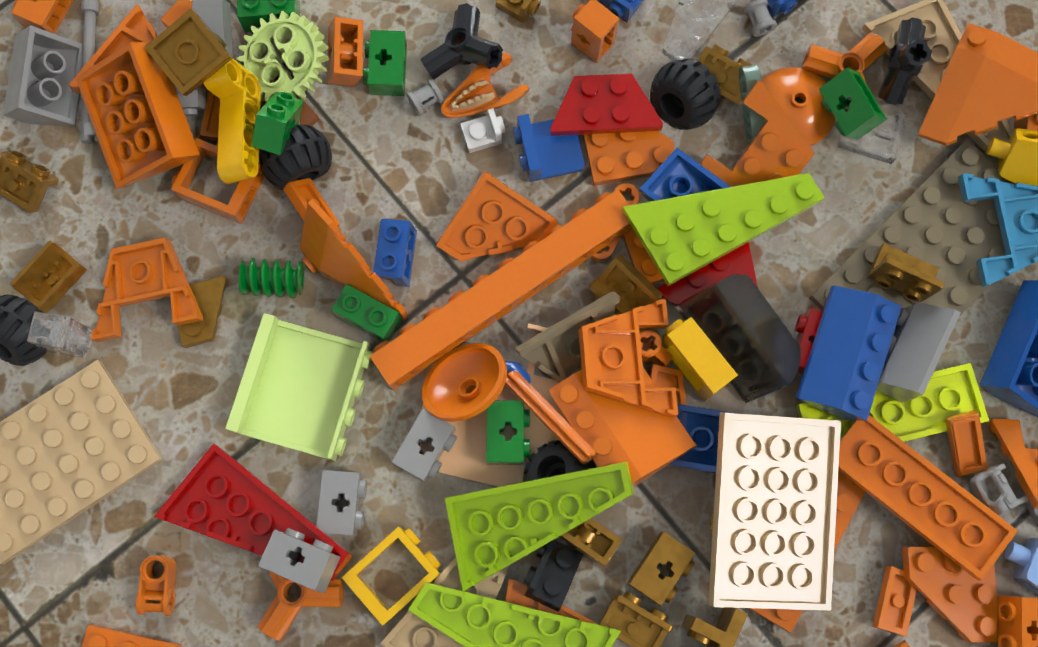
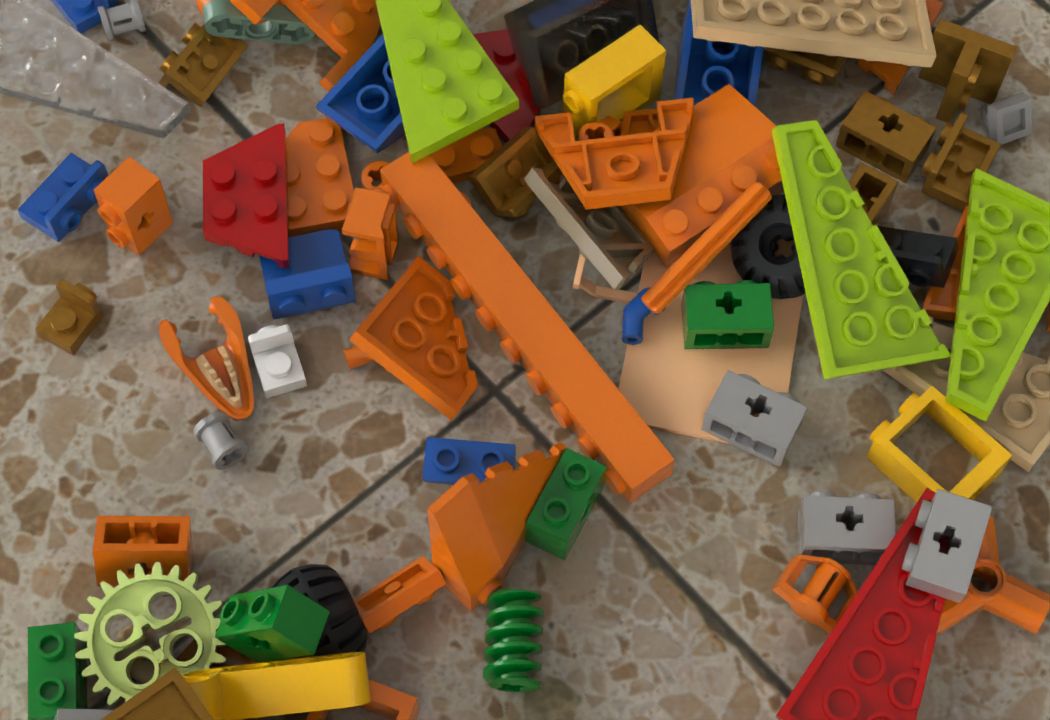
camera: 90 degrees left, 15 degrees down
(297, 480) = (819, 592): none -> orange piece
(300, 388) = (680, 596): yellowish green panel -> none
(388, 78) = (181, 483): green brick -> none
(463, 45) = (120, 383): black piece -> none
(464, 382) = (639, 353): orange dish -> none
(572, 185) = (374, 223): none -> orange window
(685, 94) = (229, 103): black wheel -> none

